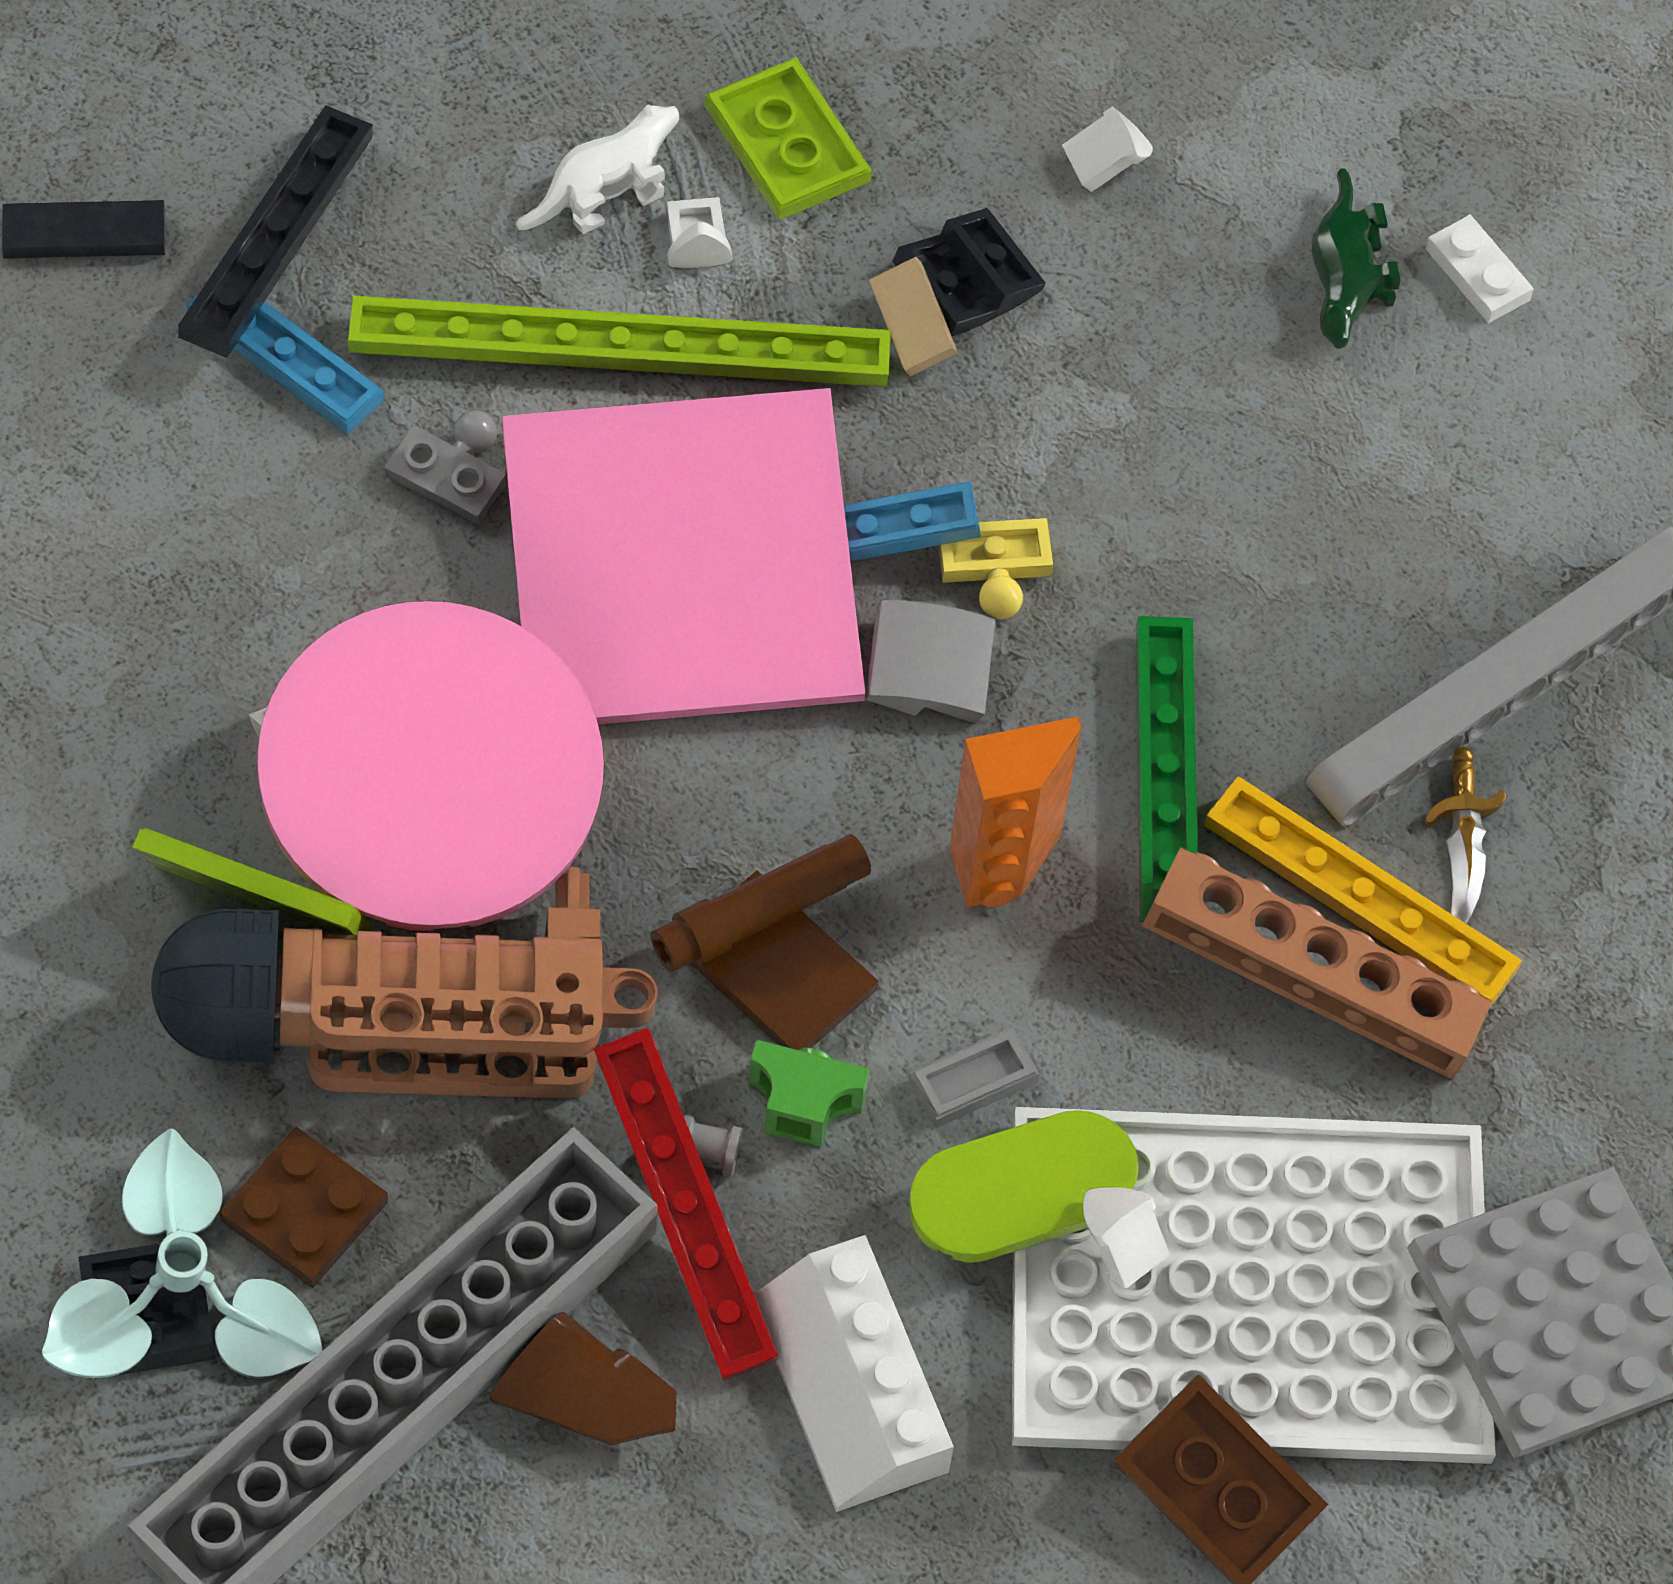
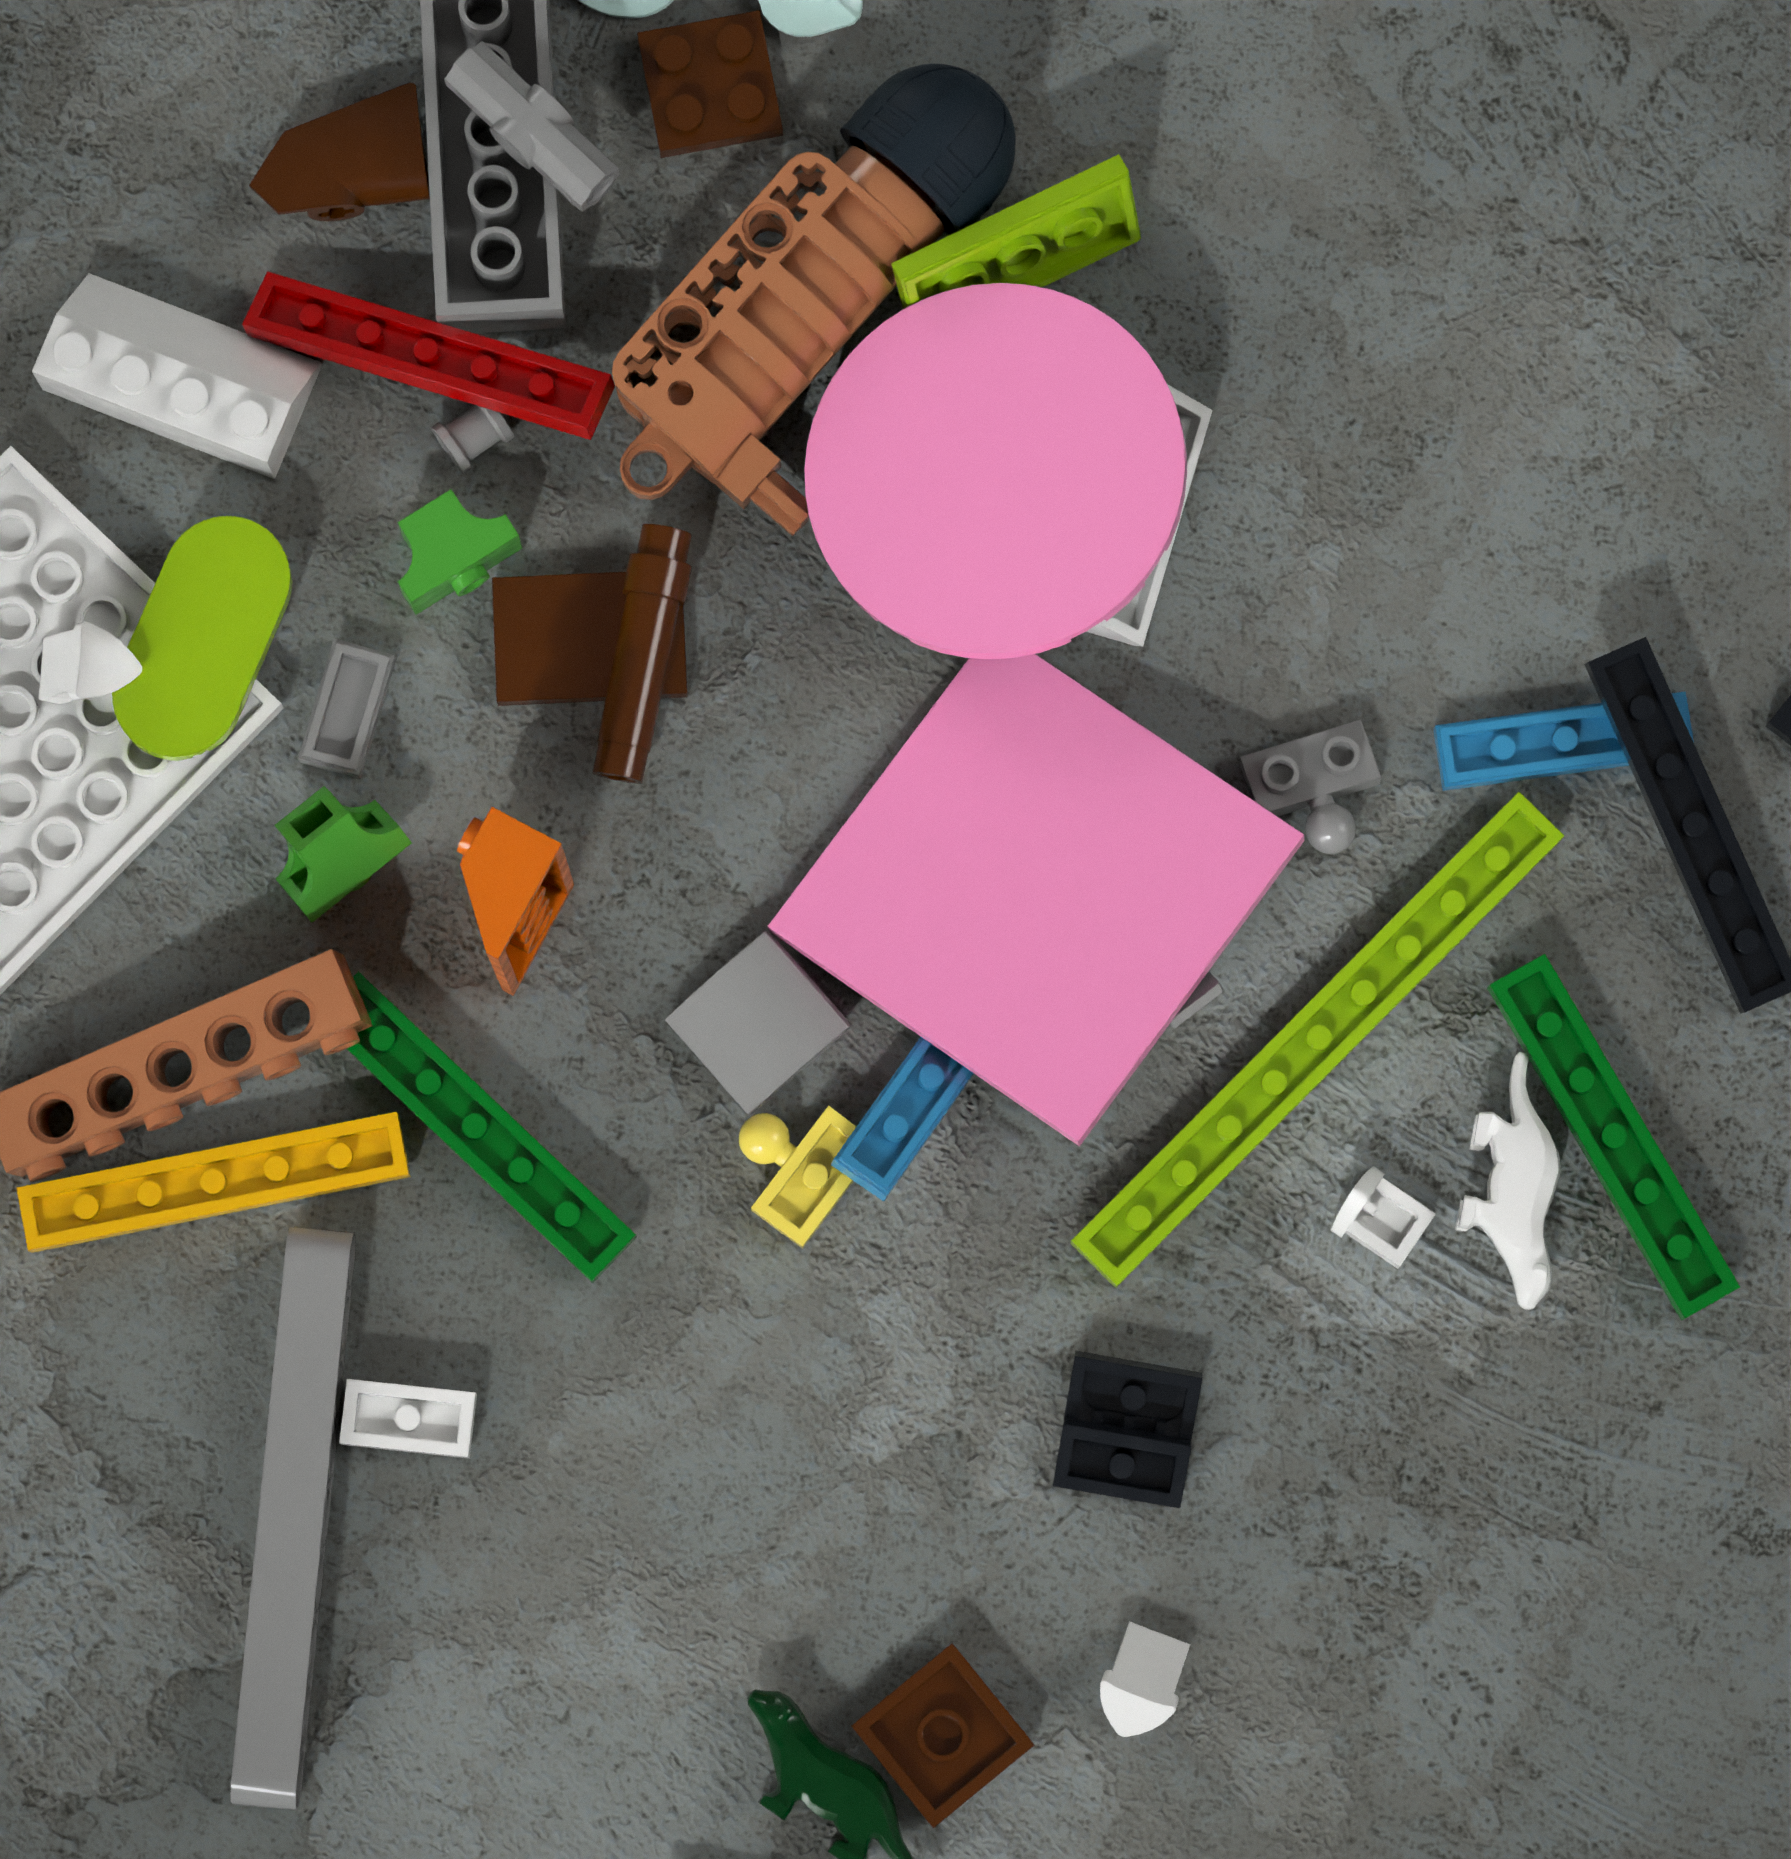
camera: 135 degrees right, 20 degrees up
(462, 1238) = (531, 126): none -> light grey piece
(520, 145) = (1613, 1137): none -> green plate
(787, 138) = (1419, 1397): lime tile -> none
(913, 316) = (1116, 1324): tan tile -> none
(1079, 988) = (334, 850): none -> bright green brick
(1253, 229) = (942, 1735): none -> reddish brown plate
(1381, 657) = (408, 1418): none -> white plate
(1467, 832) = (188, 1332): piece -> none

